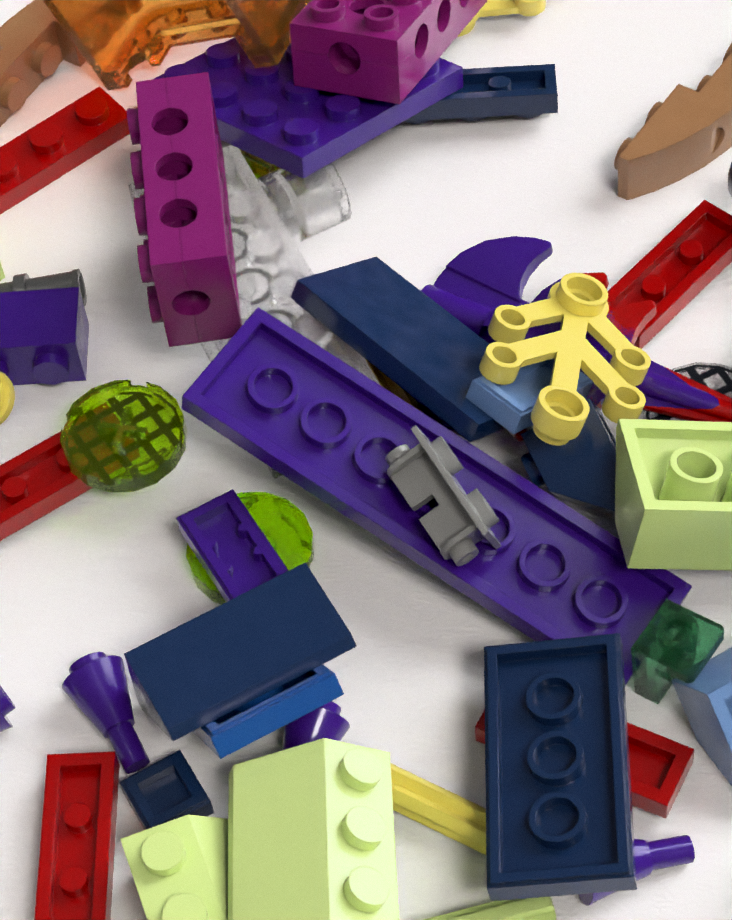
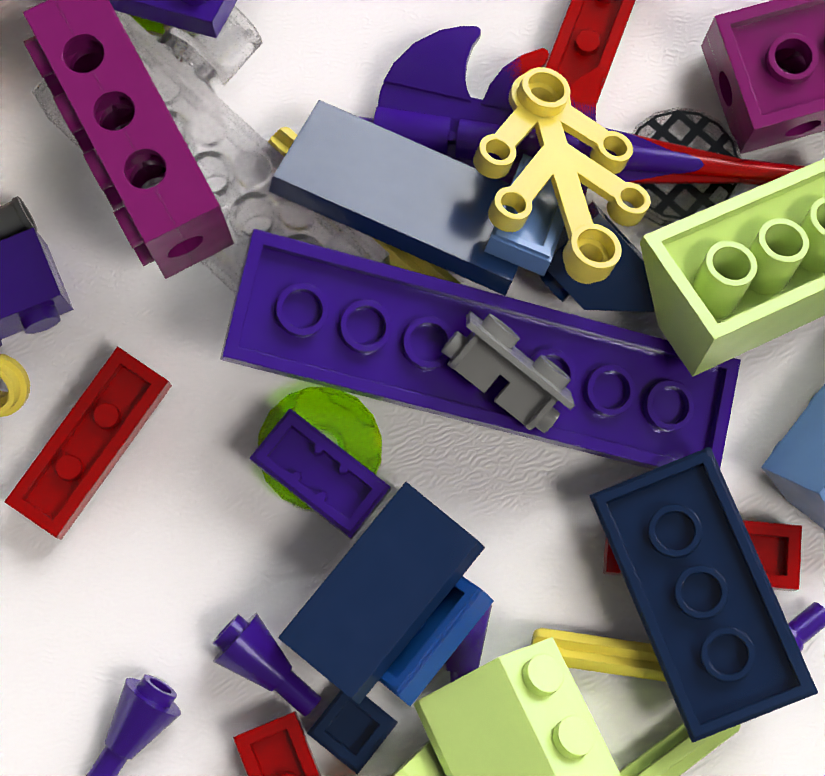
camera: 30 degrees left, 25 degrees up
(123, 436) = (153, 378): clear neon green tile -> none
(672, 647) = (760, 438): clear green bracket -> none

